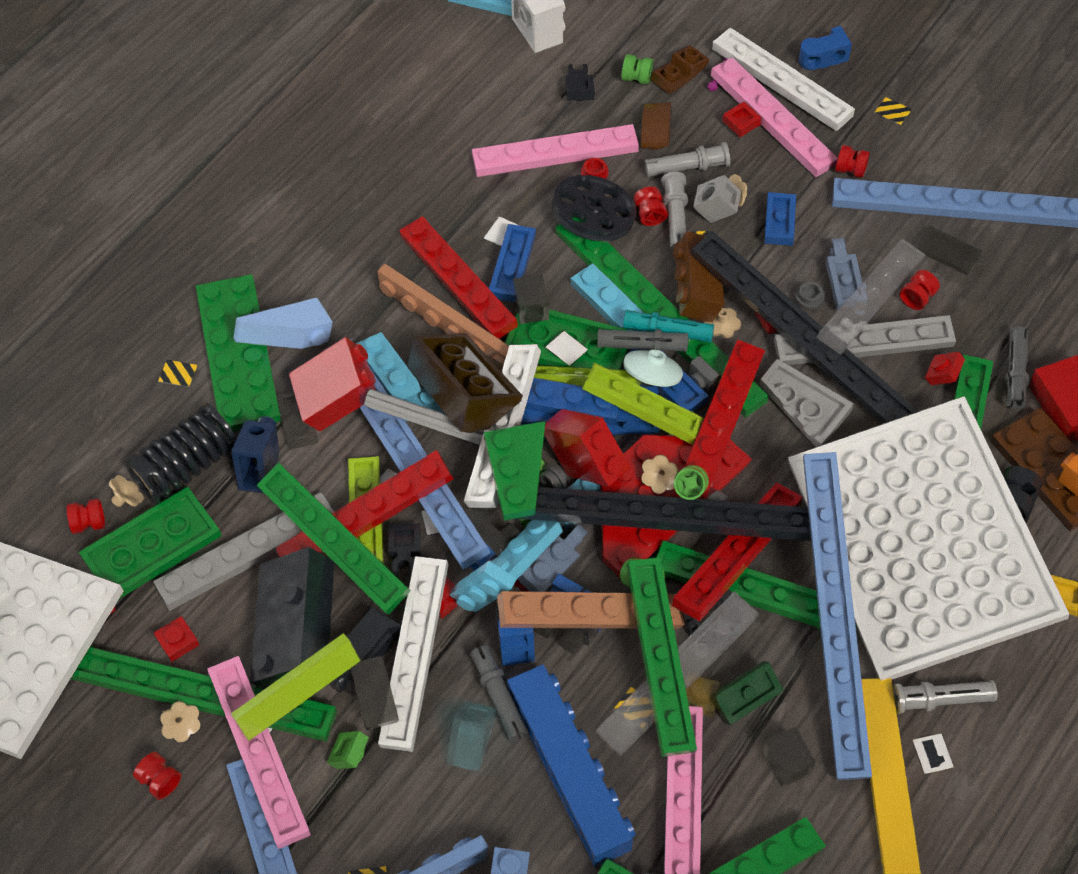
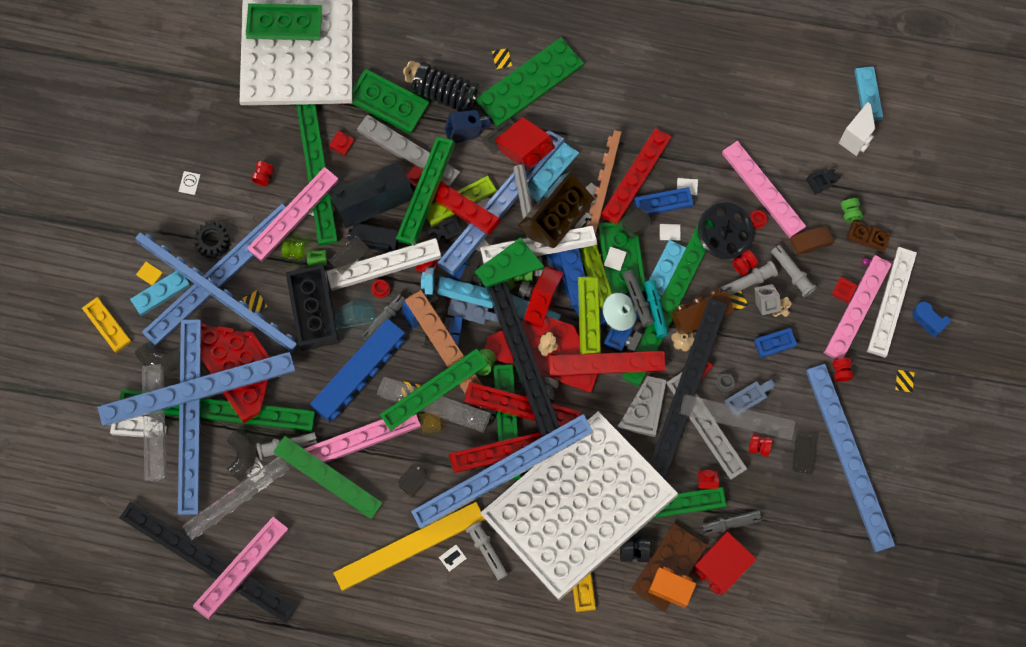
camera: 60 degrees right, 15 degrees up
(82, 517) = (387, 59): red wheel -> none
(180, 721) = (295, 169): tan plant -> none
(288, 326) = (556, 103): light blue slope -> none
(295, 687) = (329, 214): lime tile -> none
(312, 781) = (292, 249): none -> clear neon green wheel
(430, 787) = (312, 307): none -> black brick
(447, 678) = (380, 288): none -> red plate
(558, 276) = (670, 232): none -> white sticker
(687, 486) = (545, 362): bright green wheel -> none
(747, 692) = (439, 444): dark green plate -> none
(797, 611) = (489, 453): none -> red tile

